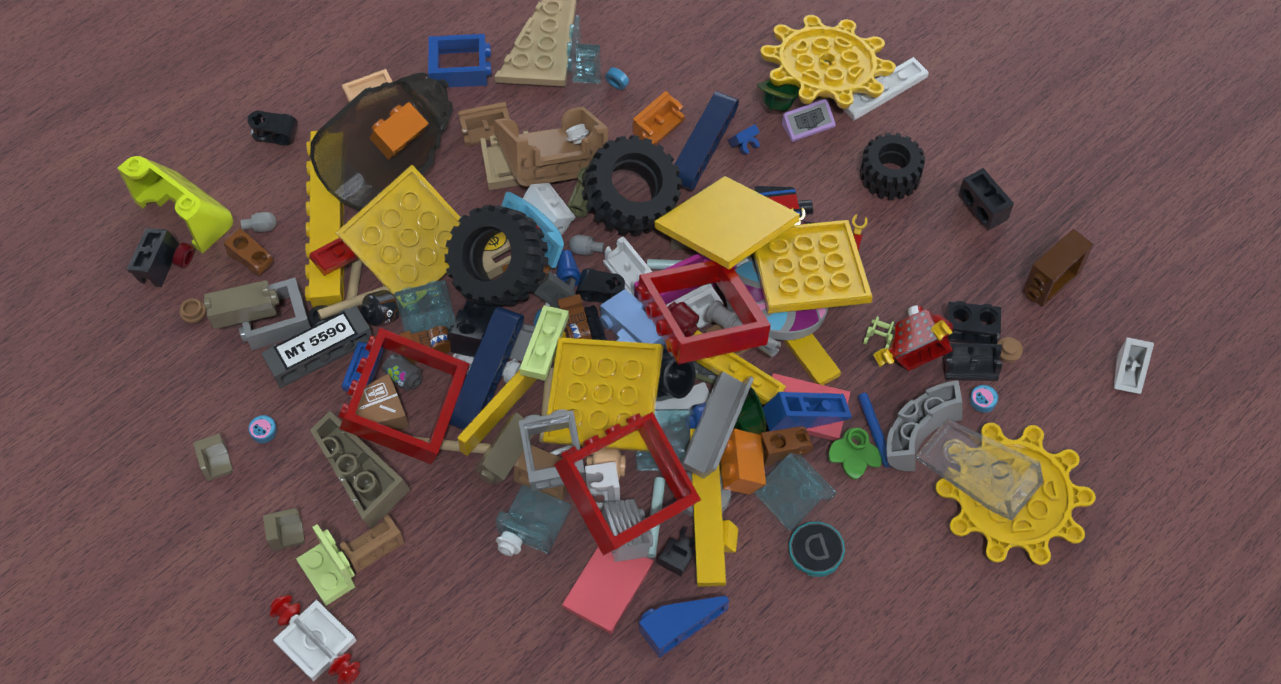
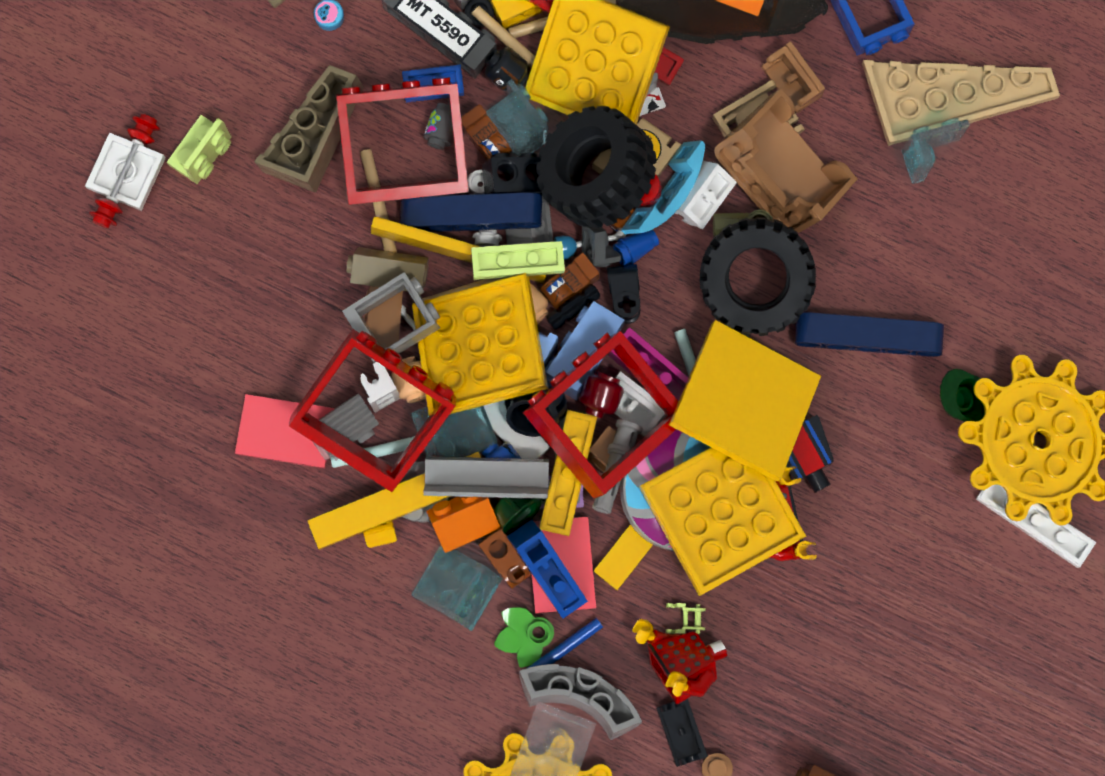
camera: 70 degrees right, 20 degrees up
(284, 529) = (225, 88): dark tan panel -> none
(372, 544) = (242, 180): medium nougat hinge -> none
(382, 404) = (392, 122): medium nougat torso -> none
(509, 543) = (289, 316): white plate -> none
(534, 518) = (320, 329): clear light blue bracket -> none
(577, 133) = (816, 186): white plate -> none
(585, 245) = (675, 254): light grey cylinder -> none
(617, 78) = (918, 201): dark azure tile -> none
(625, 262) = (661, 312): white hinge -> none
(658, 118) = (878, 271): orange hinge -> none
(677, 554) = (339, 489): black plate -> none
(677, 622) = (261, 510): blue slope -> none
(745, 137) = (892, 378): blue tile -> none
(808, 120) = (944, 444): slope -> none
(816, 549) = (399, 629): black tile -> none
(897, 151) = (932, 546): black tyre -> none
(972, 329) = (725, 719): black brick -> none
(983, 398) = (644, 756): tile -> none
(985, 199) = (906, 687): black brick -> none

